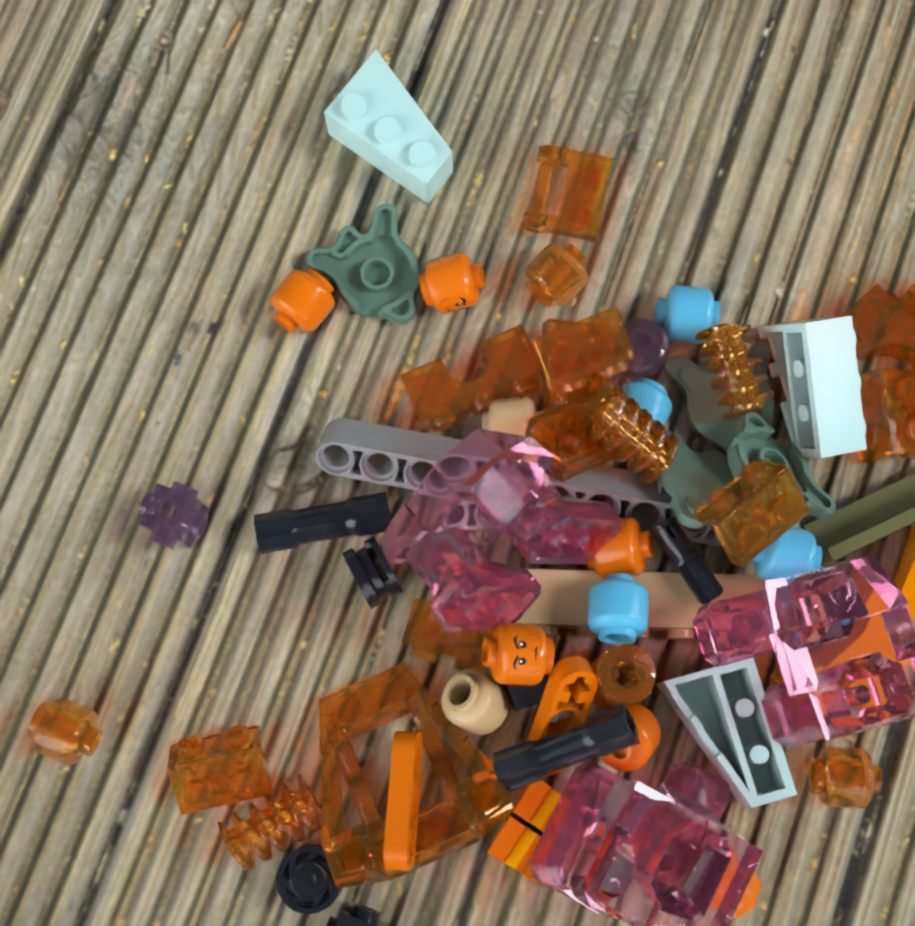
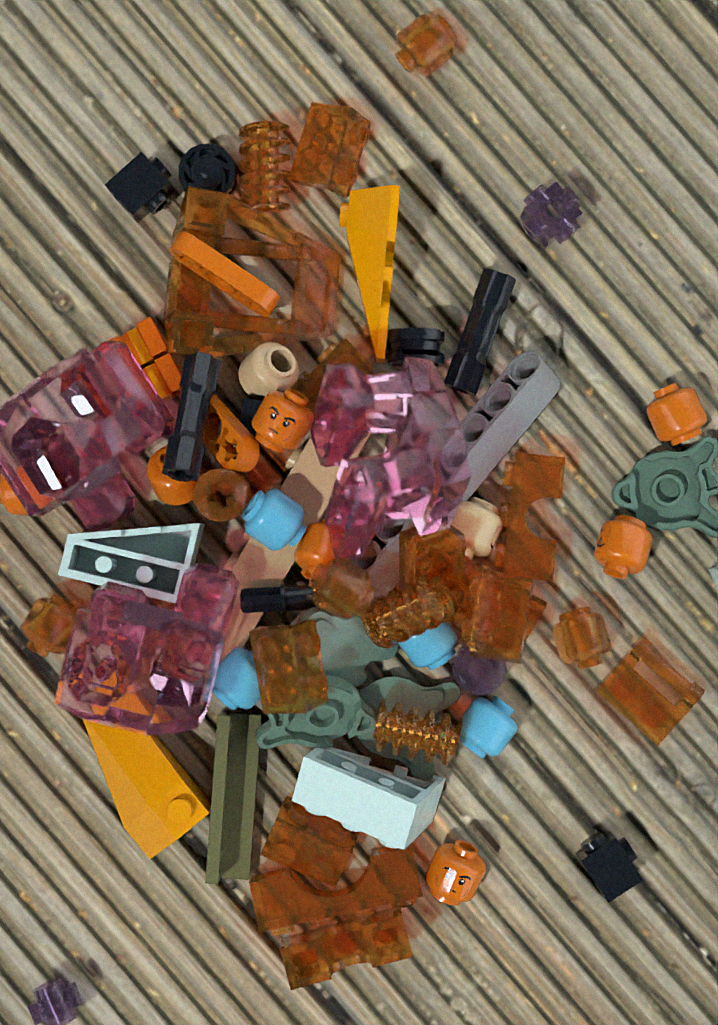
camera: 115 degrees right, 10 degrees up
(287, 675) = (371, 243): none -> light orange wedge
(648, 504) = (341, 588): none -> clear orange head
(743, 143) = (609, 864): none -> black brick
(835, 270) = (455, 872): none -> orange head

